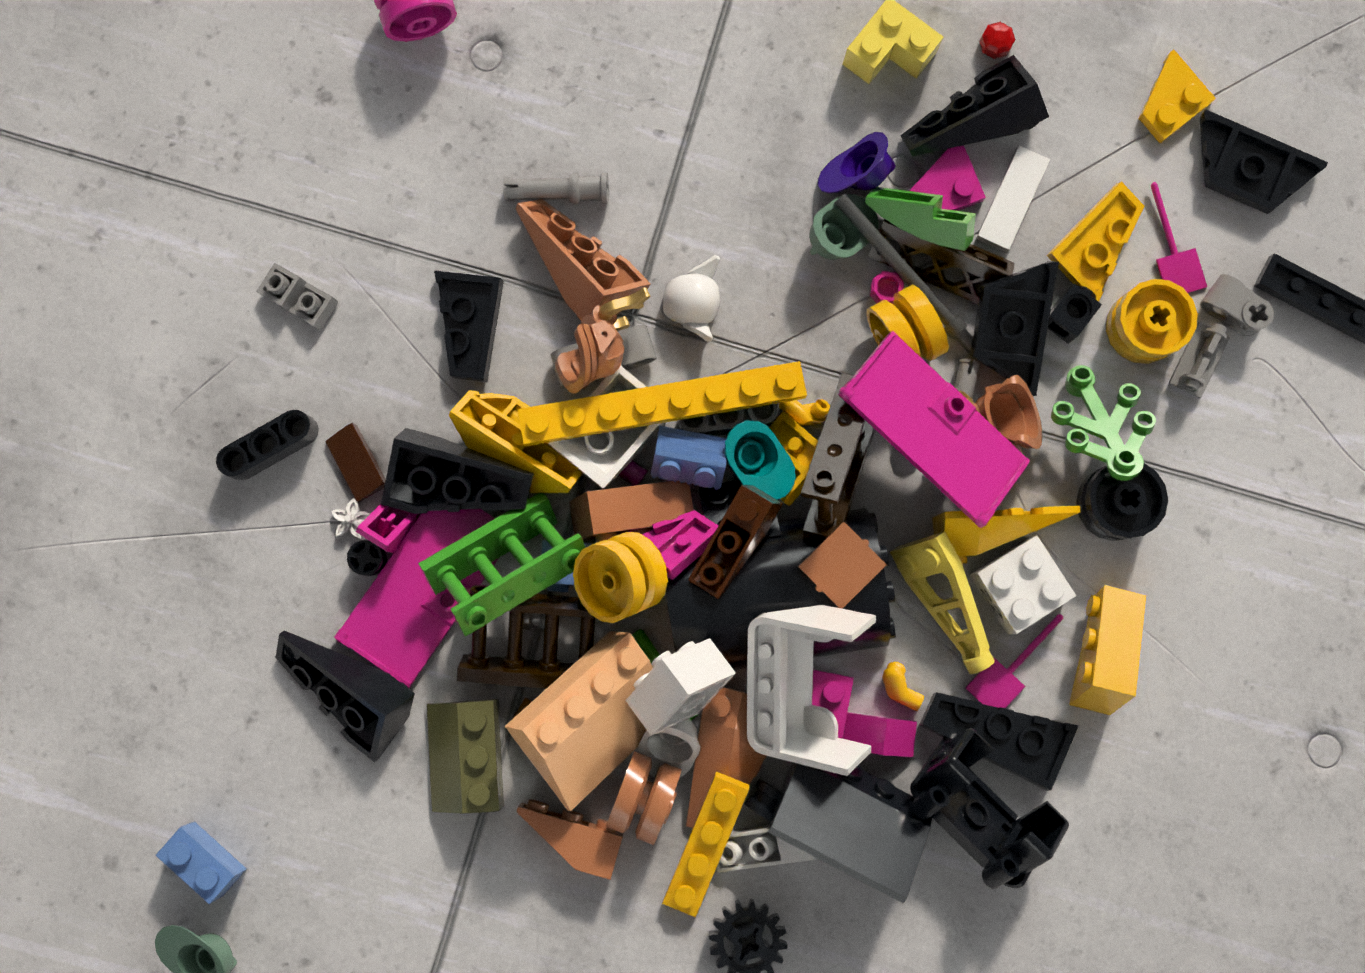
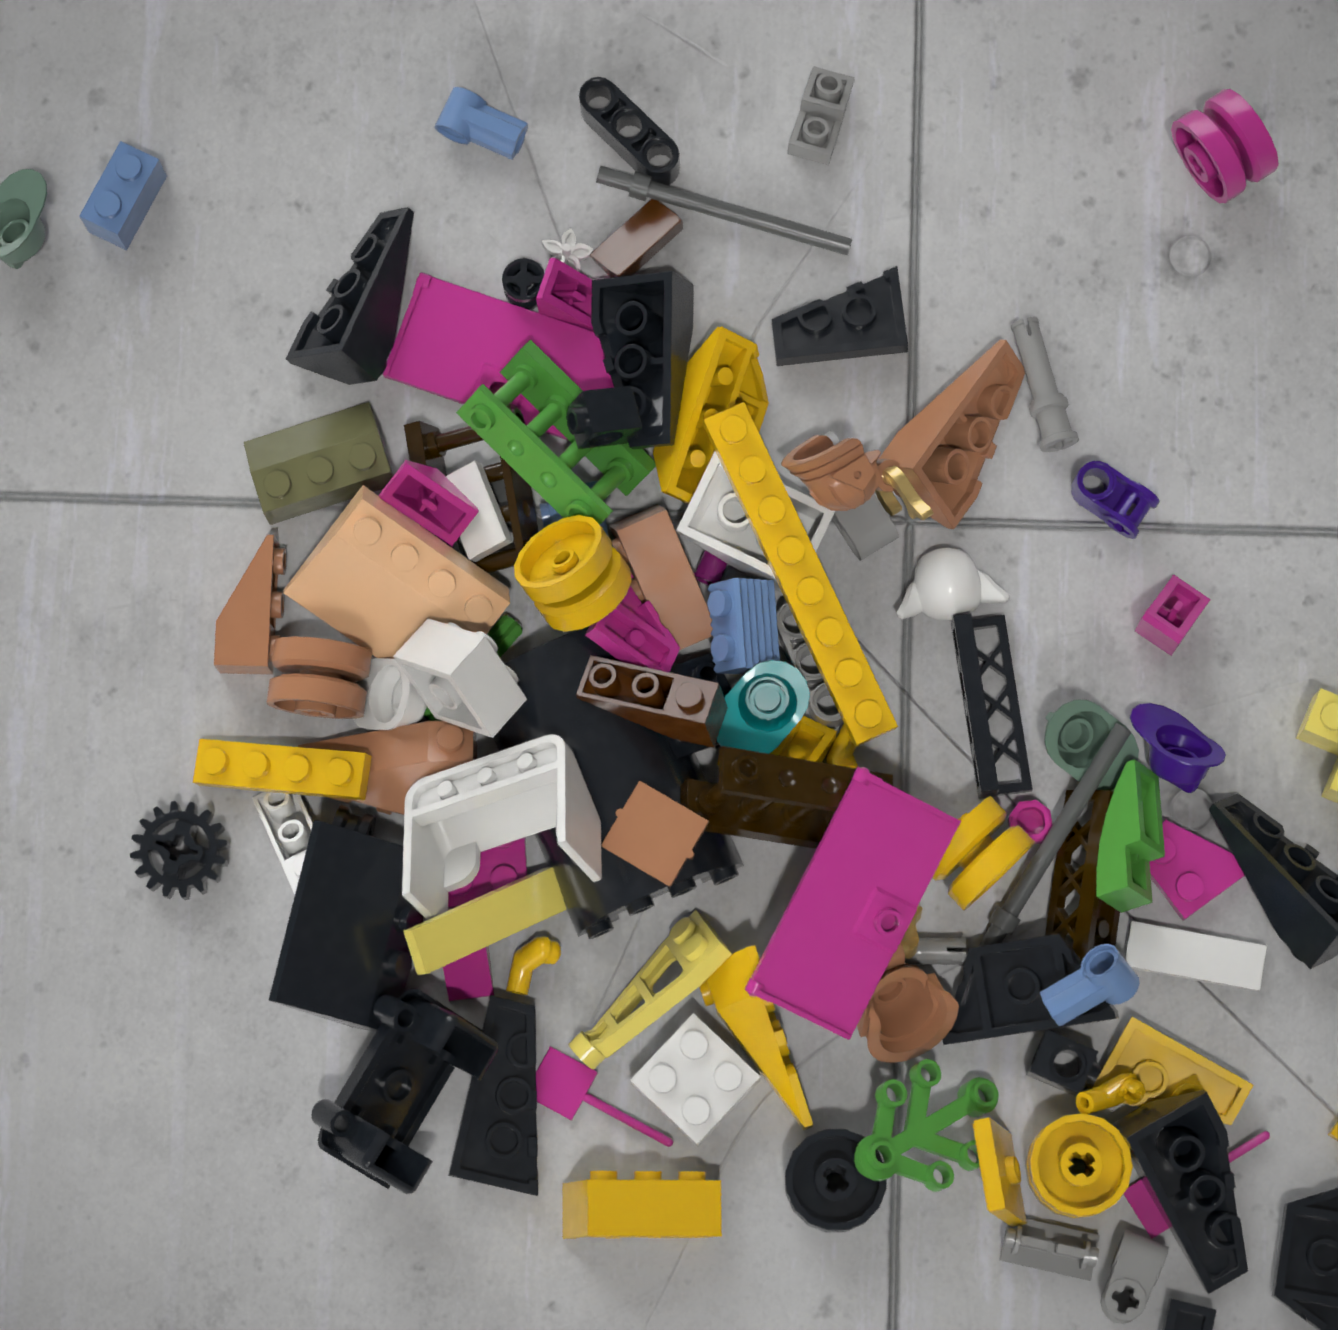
camera: 85 degrees right, 5 degrees down
(220, 567) = (470, 119): none -> medium blue piece
(315, 446) = (641, 187): none -> dark grey bar
(498, 521) = (603, 417): none -> black brick
(528, 675) = (430, 500): none -> dark pink slope
(544, 641) = (488, 528): none -> white tile
(664, 156) = (1116, 499): none -> dark purple piece
(759, 143) = (1172, 615): none -> dark pink slope
(791, 302) = (975, 705): none -> black fence
(870, 716) = (484, 920): none -> light yellow tile
(1036, 275) = (1101, 978): none -> medium blue piece
(1104, 284) = (1111, 1094): none -> yellow arm
(1149, 376) = (999, 1172): none -> yellow plate
(1178, 245) = (1185, 1166): none -> black wedge

